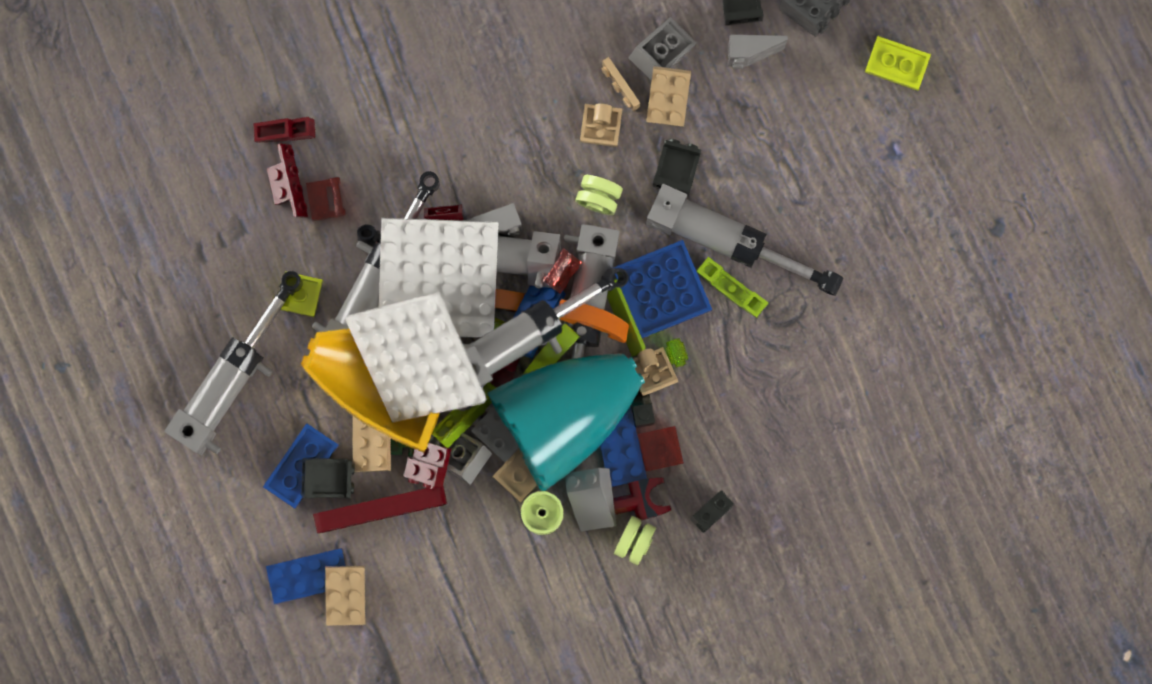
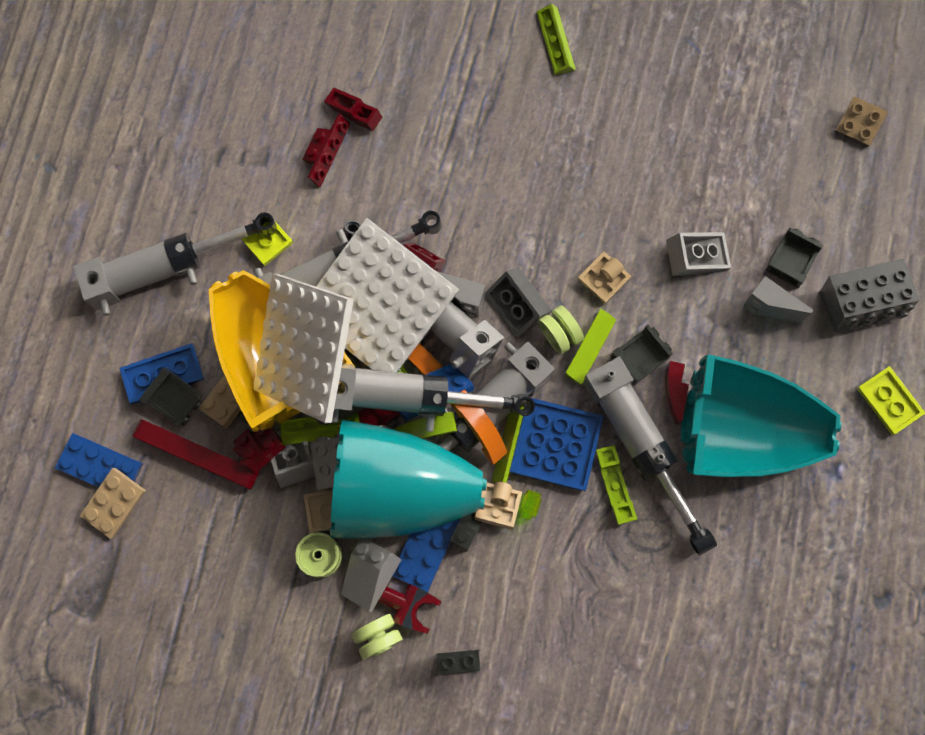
camera: 40 degrees right, 5 degrees down
(319, 199) = (339, 179): clear red plate -> none
(546, 196) = (517, 301): none -> dark grey slope
(562, 271) = (482, 367): clear red plate -> none
(620, 84) = (643, 256): tan plate -> none
(631, 190) = (590, 347): none -> lime slope
(660, 448) = (457, 575): clear red plate -> none
(668, 96) = (676, 291): tan plate -> none
(725, 177) = (676, 390): none -> dark red slope
(803, 162) = (752, 422): none -> teal panel

